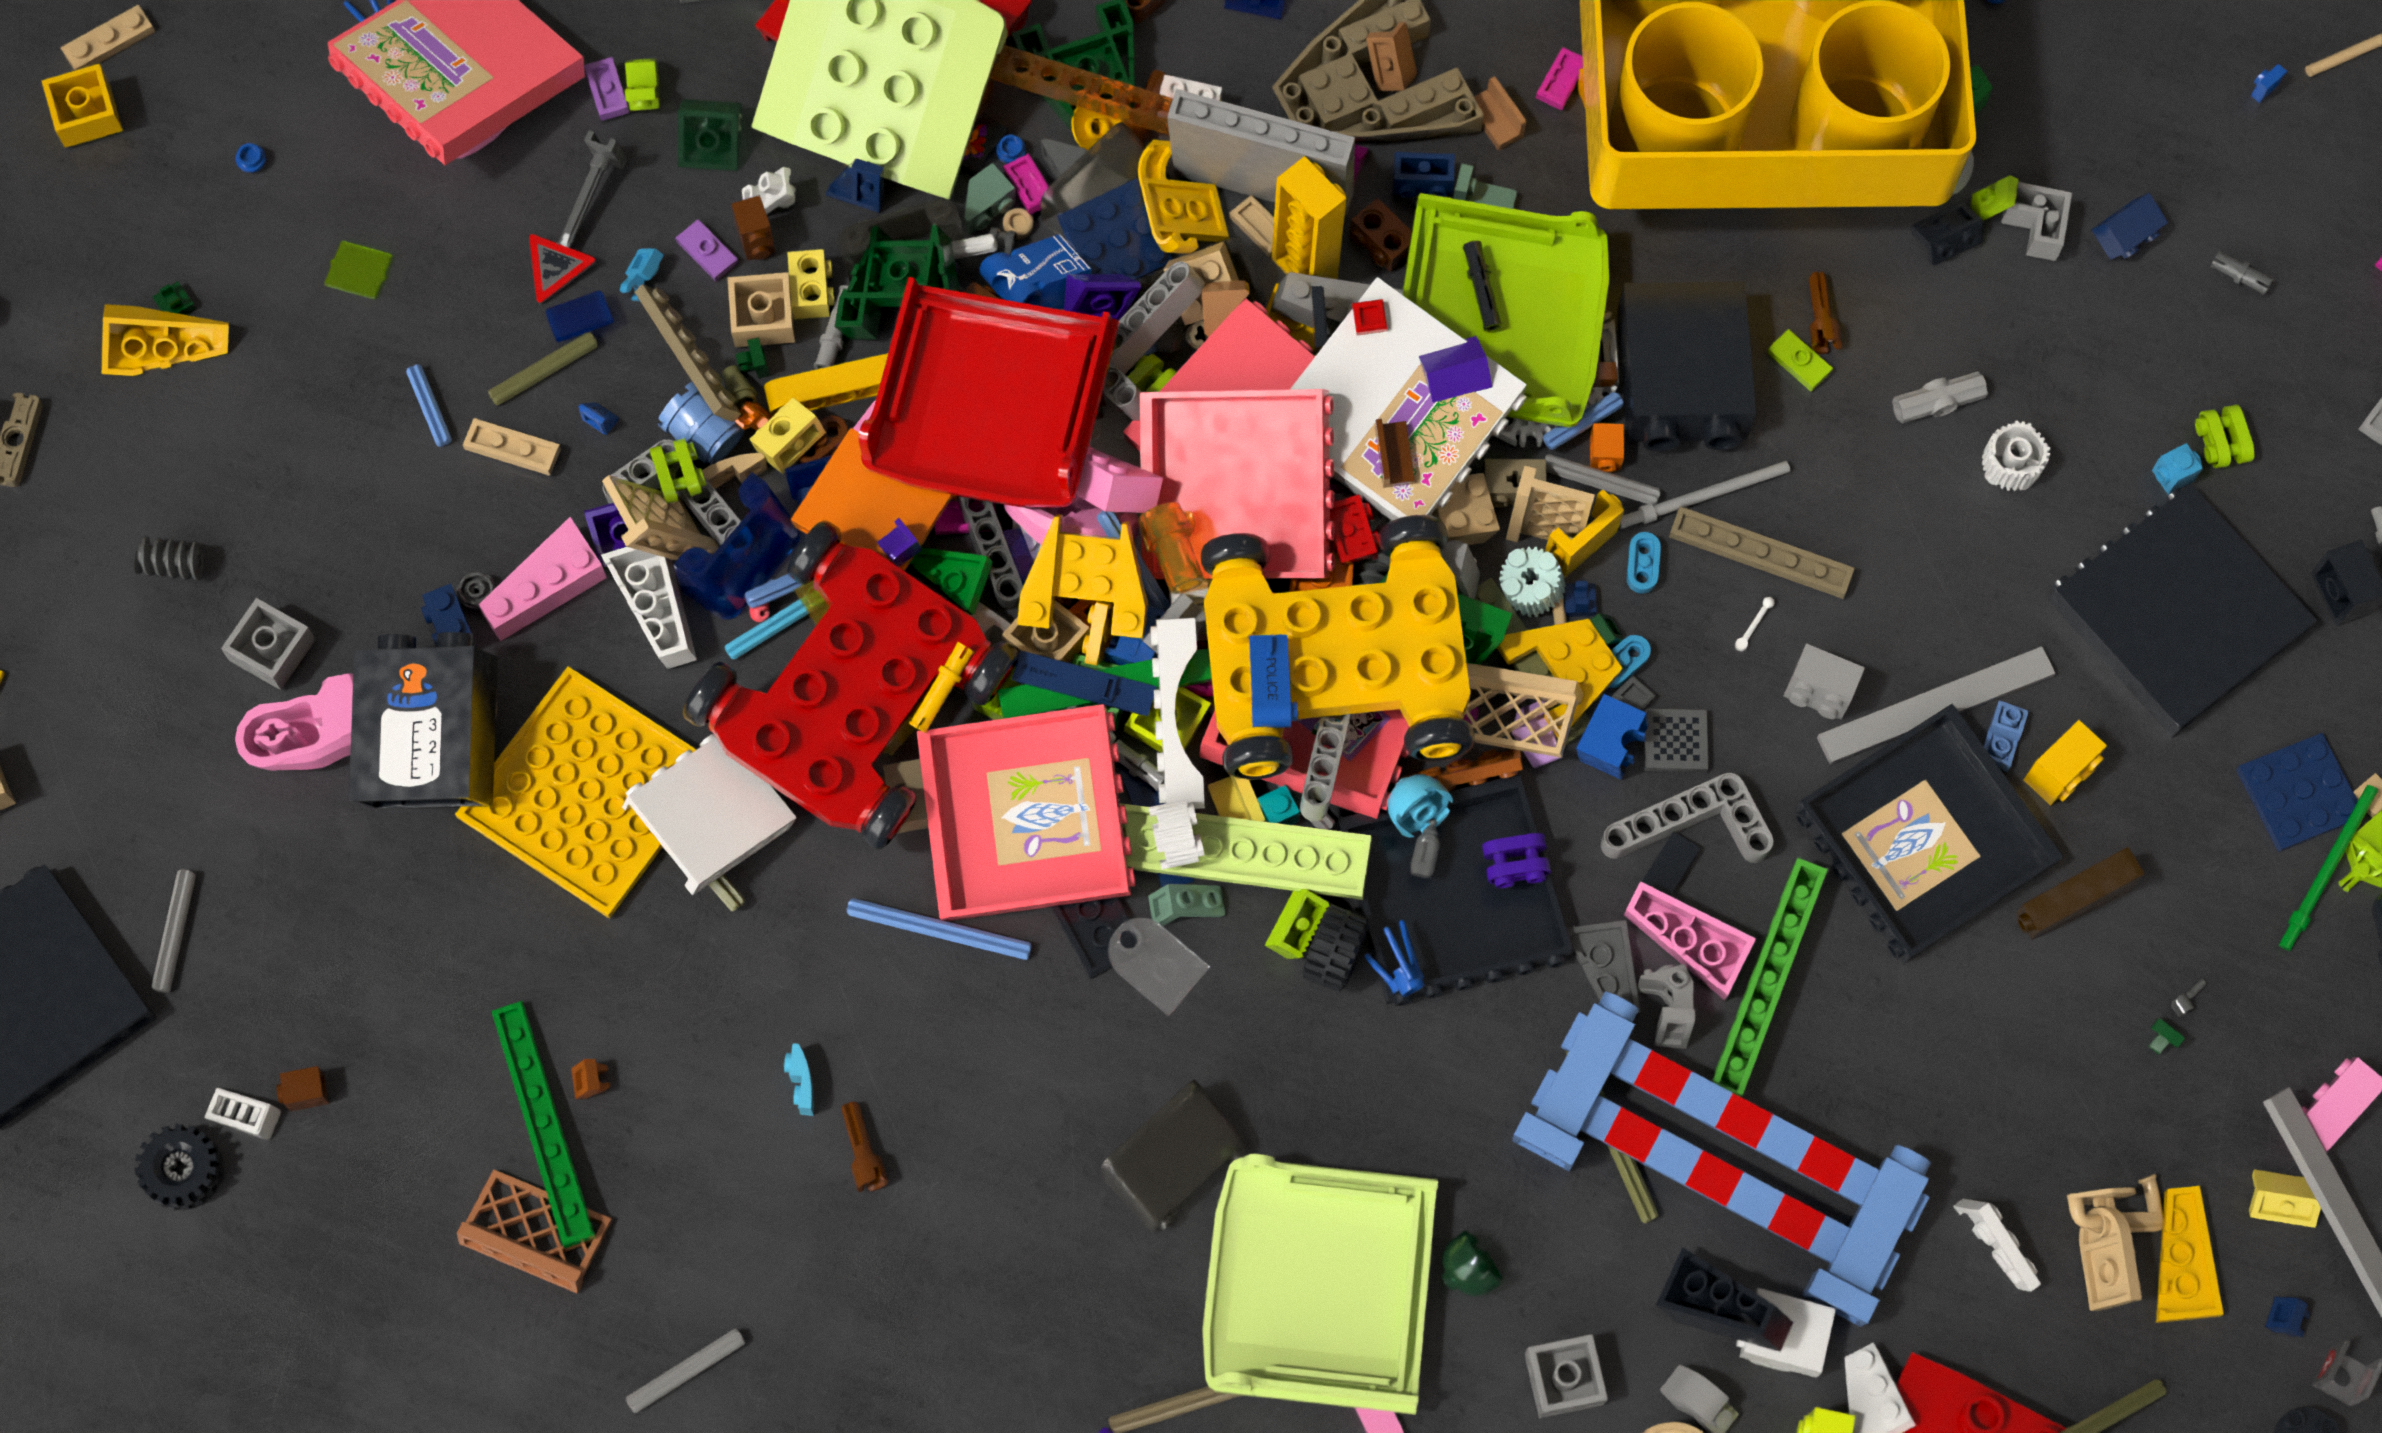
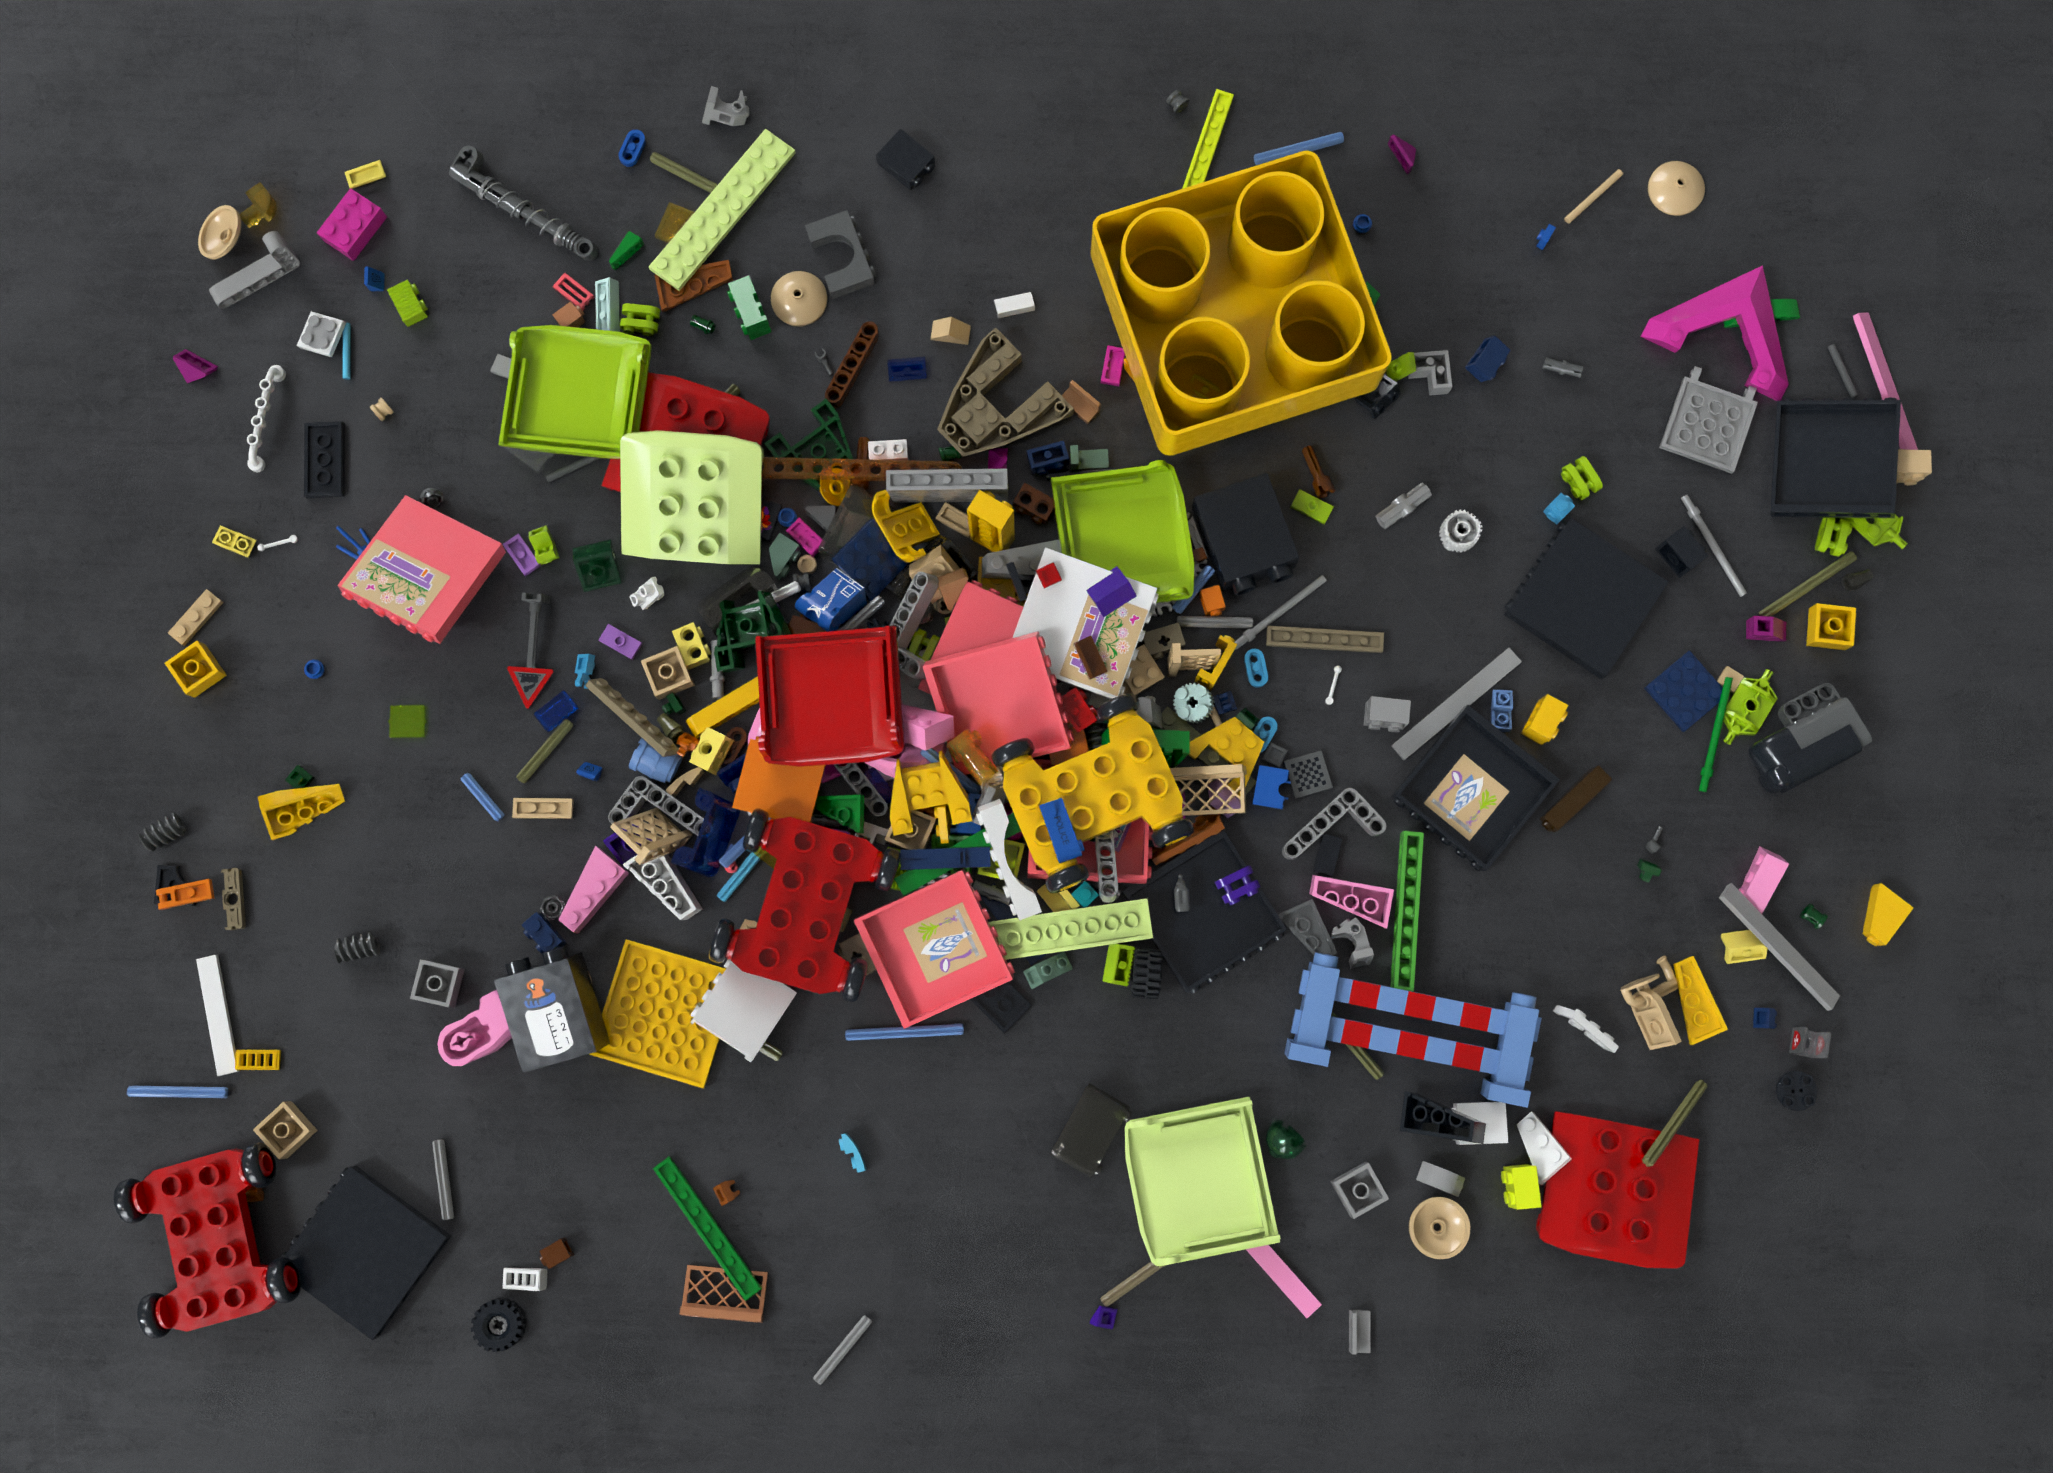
camera: 15 degrees left, 10 degrees up
(685, 455) = (663, 799): lime brick -> none
(753, 228) = (645, 622): reddish brown brick -> none
(859, 185) = (701, 572): dark blue wing -> none
(867, 1166) = (909, 1193): reddish brown piece -> none
(899, 544) = (804, 805): dark purple panel -> none
(941, 687) = (863, 881): yellow pin -> none
(1099, 293) = (874, 603): dark purple slope -> none
(1158, 963) = (1041, 1014): clear tile -> none
(1175, 833) = (1030, 936): white brick -> none
(1392, 58) = (1005, 386): medium nougat panel -> none
(1407, 977) = (1194, 979): blue plant -> none
(1416, 802) = (1167, 869): medium azure cylinder -> none
(1479, 274) = (1105, 520): black pin -> none

